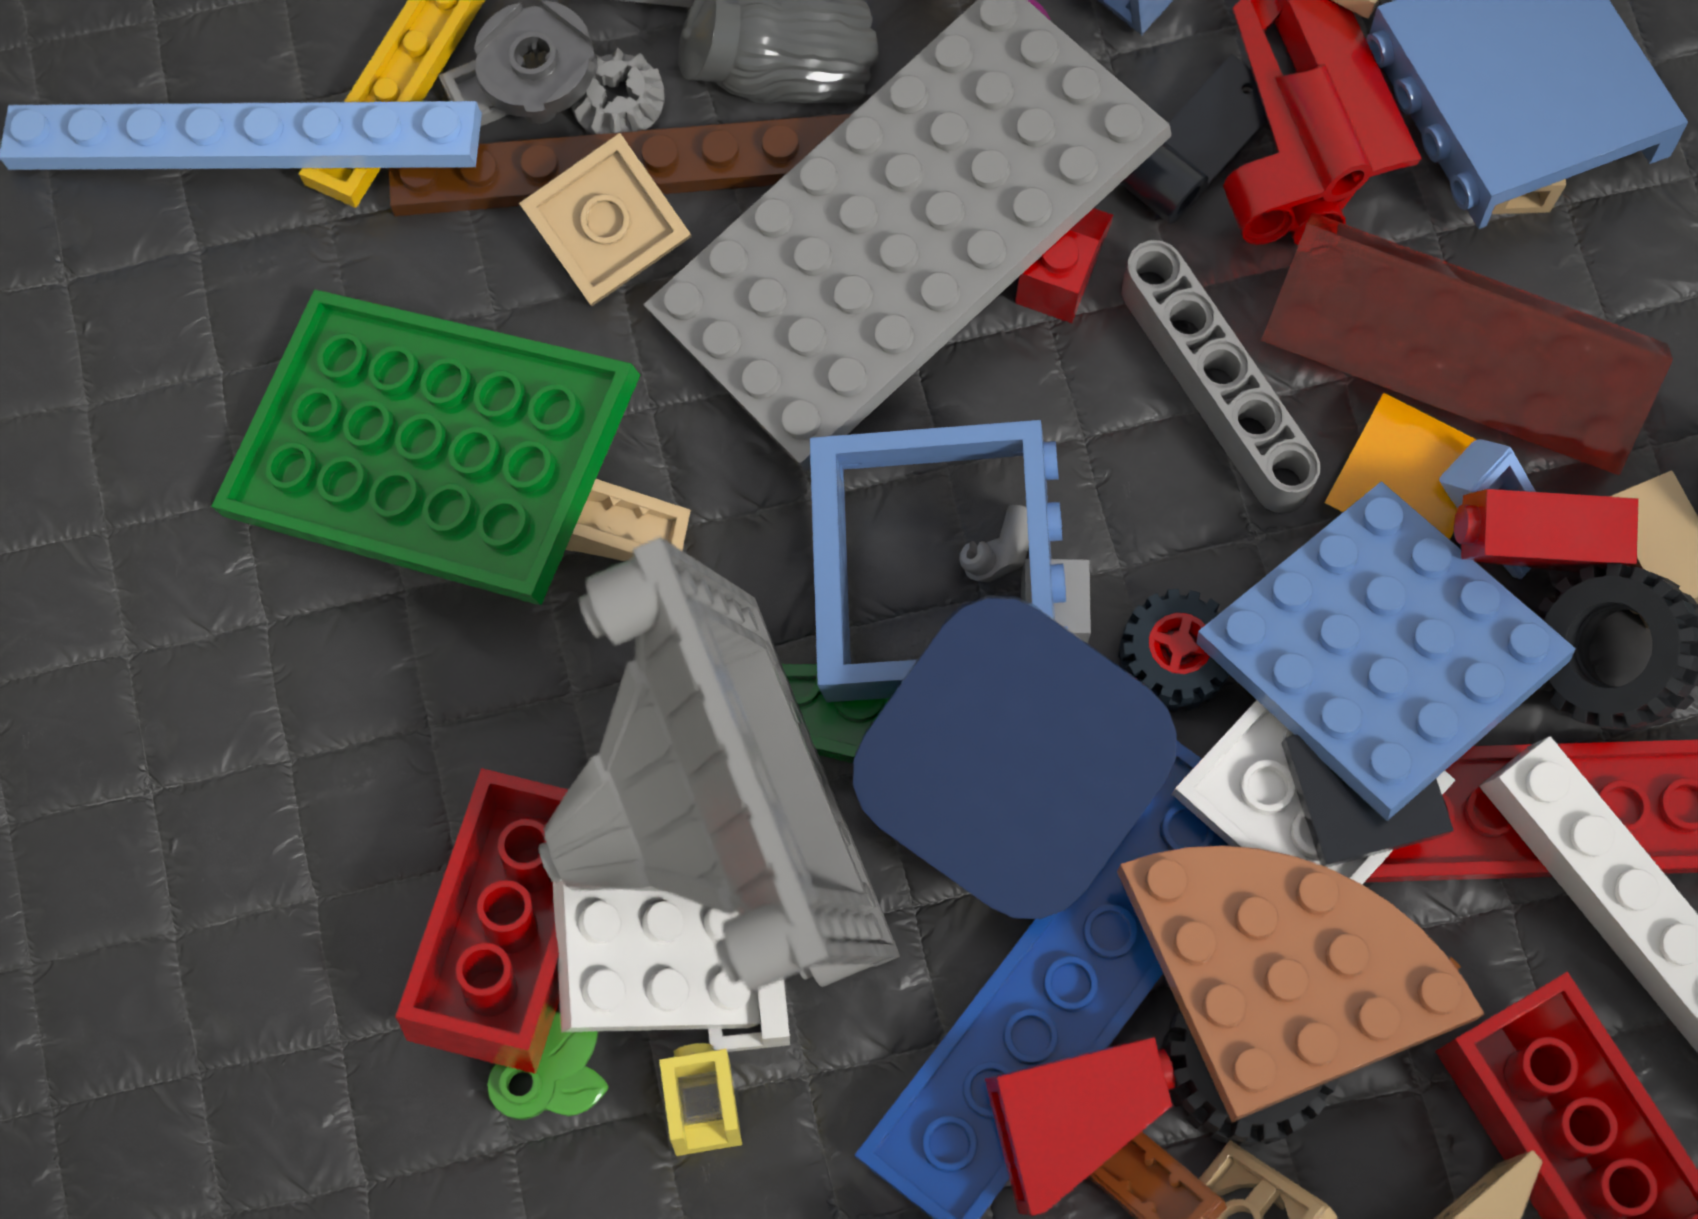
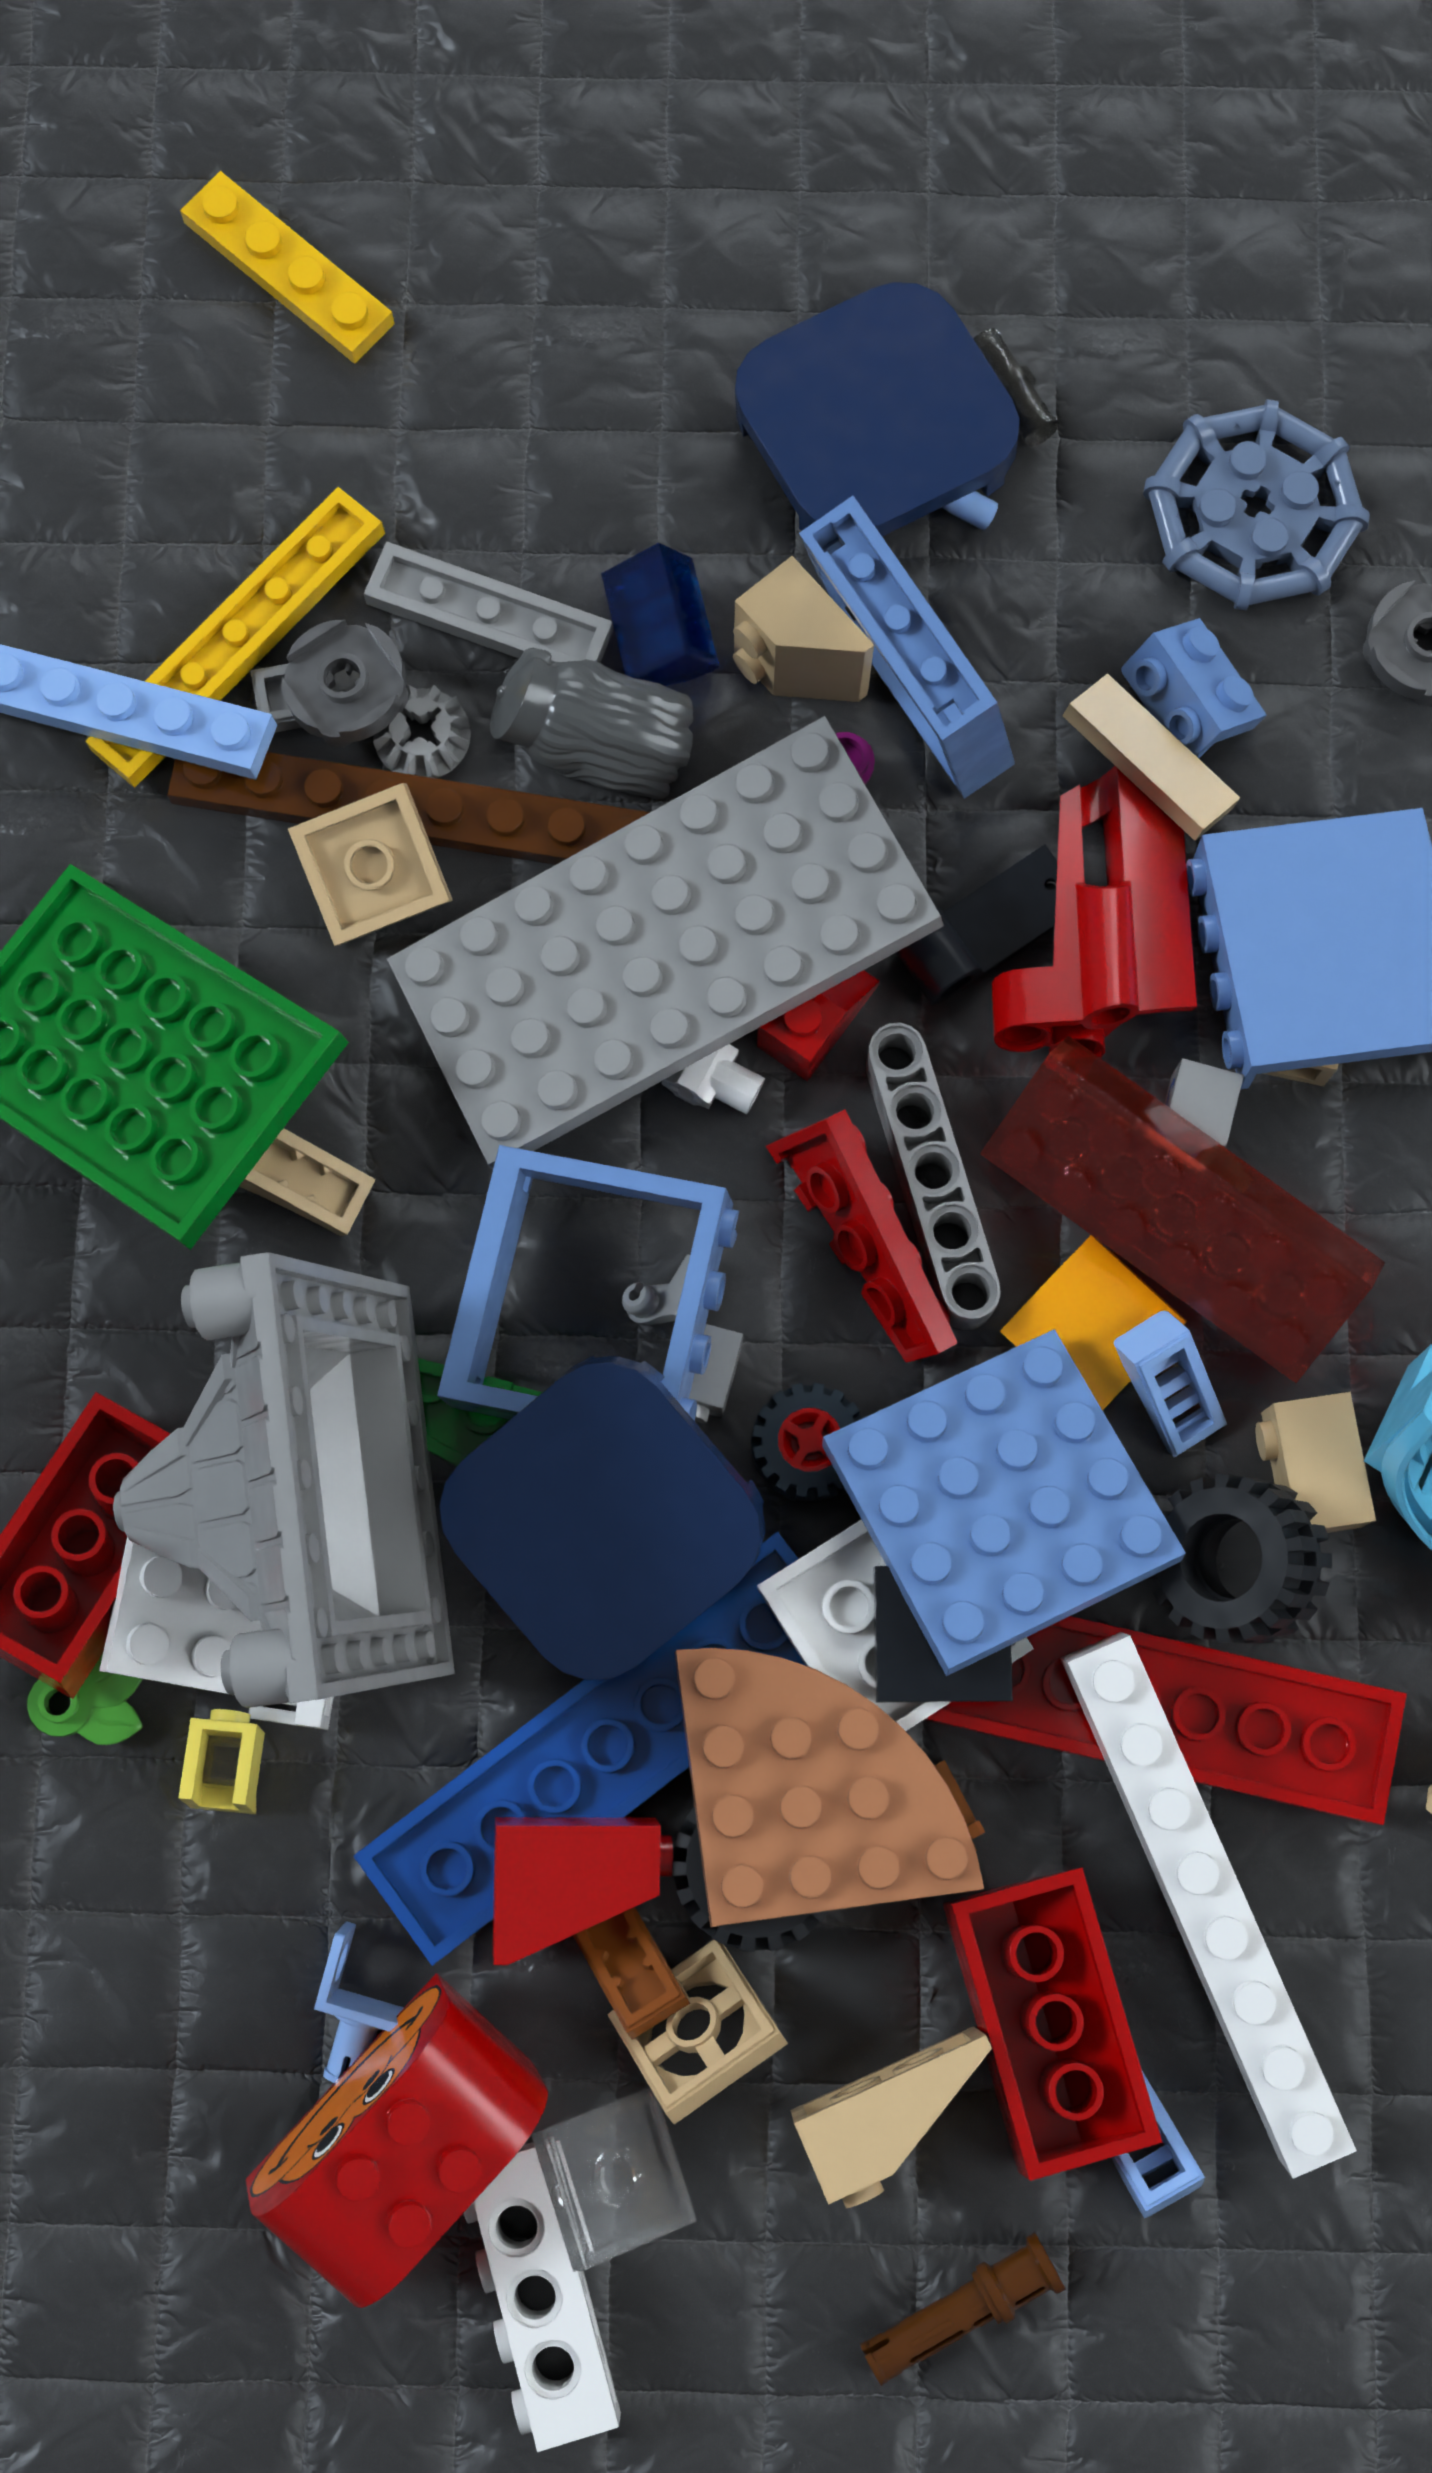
camera: 15 degrees right, 5 degrees up
(989, 337) = (717, 1078): none -> white axle
(1178, 442) = (867, 1232): none -> red wing
(1451, 237) = (1205, 1097): none -> light grey brick
(1547, 529) = (1195, 1425): red slope -> none

